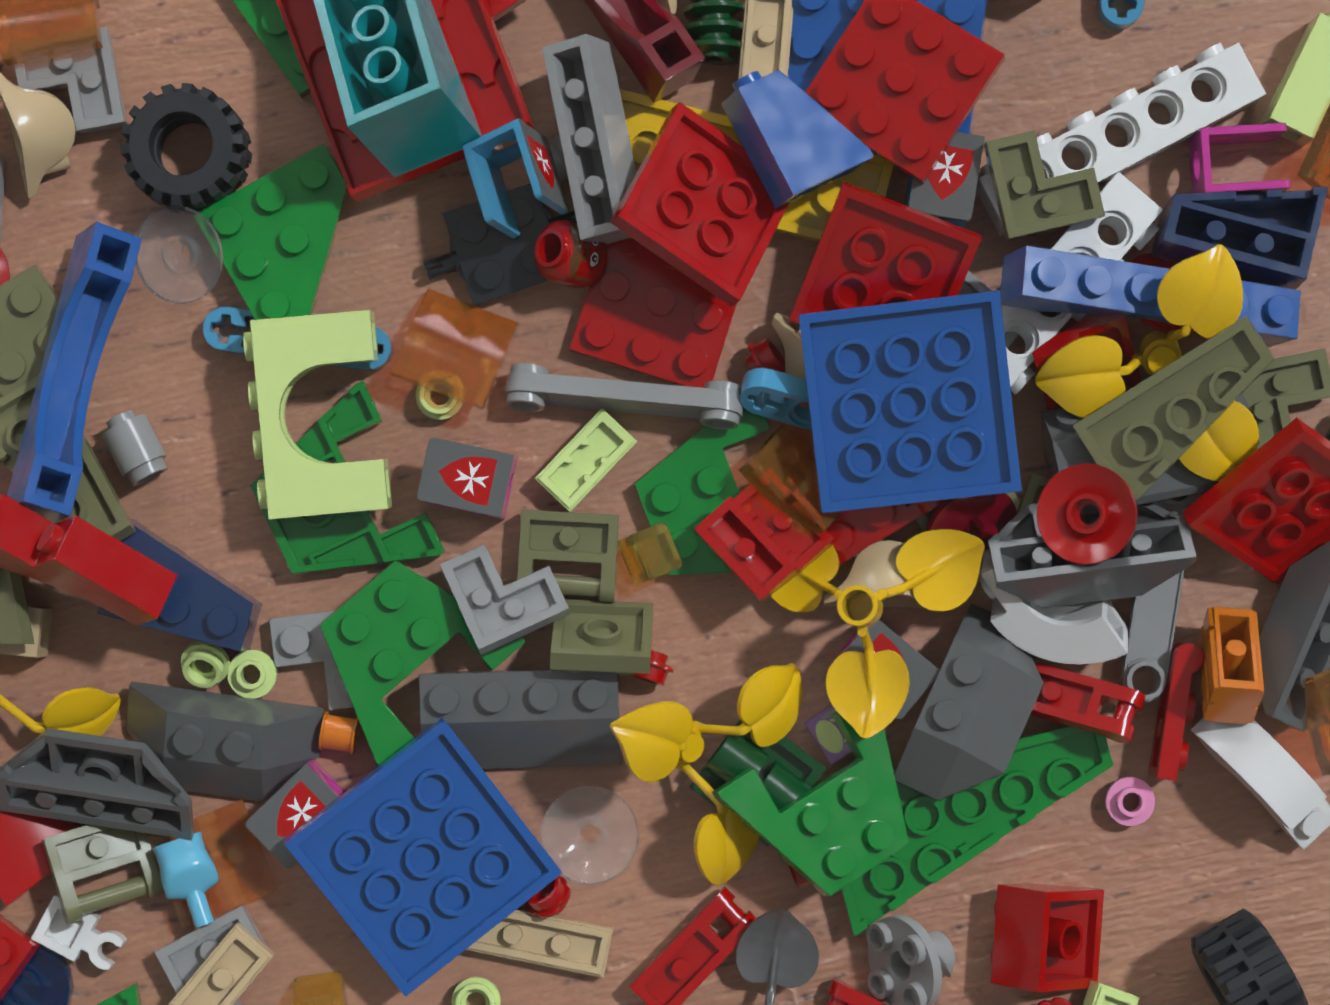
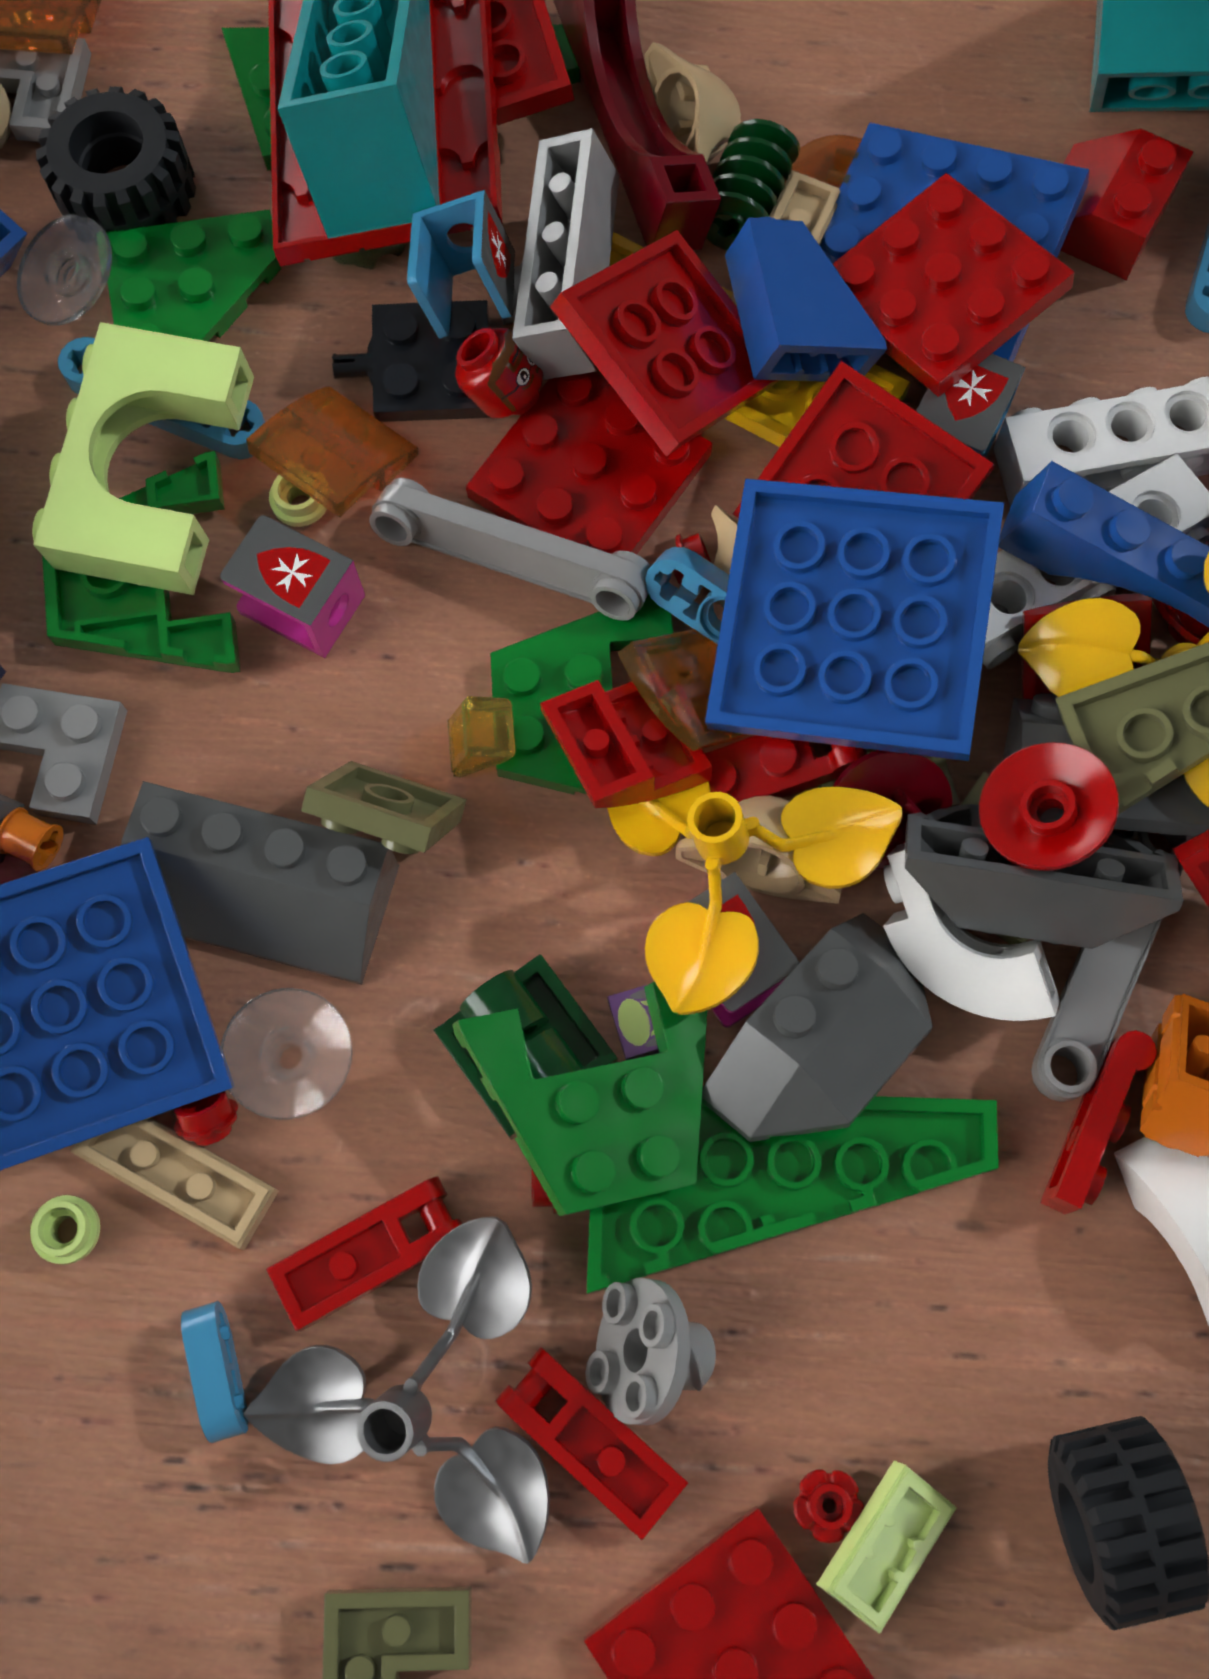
camera: 20 degrees right, 15 degrees down
(388, 635) = (137, 727): green wing -> none
(501, 612) = (269, 739): light grey plate -> none
(574, 539) = (389, 693): olive plate -> none
(586, 460) = (442, 611): yellowish green plate -> none
(658, 669) = (436, 871): red plate -> none
(666, 738) = (398, 932): yellow plant -> none
(1029, 200) = (1060, 431): olive plate -> none
(1046, 936) = (849, 1376): red slope -> none
(1079, 699) = (975, 1064): red plate -> none
(1115, 796) = (988, 1233): bright pink plate -> none

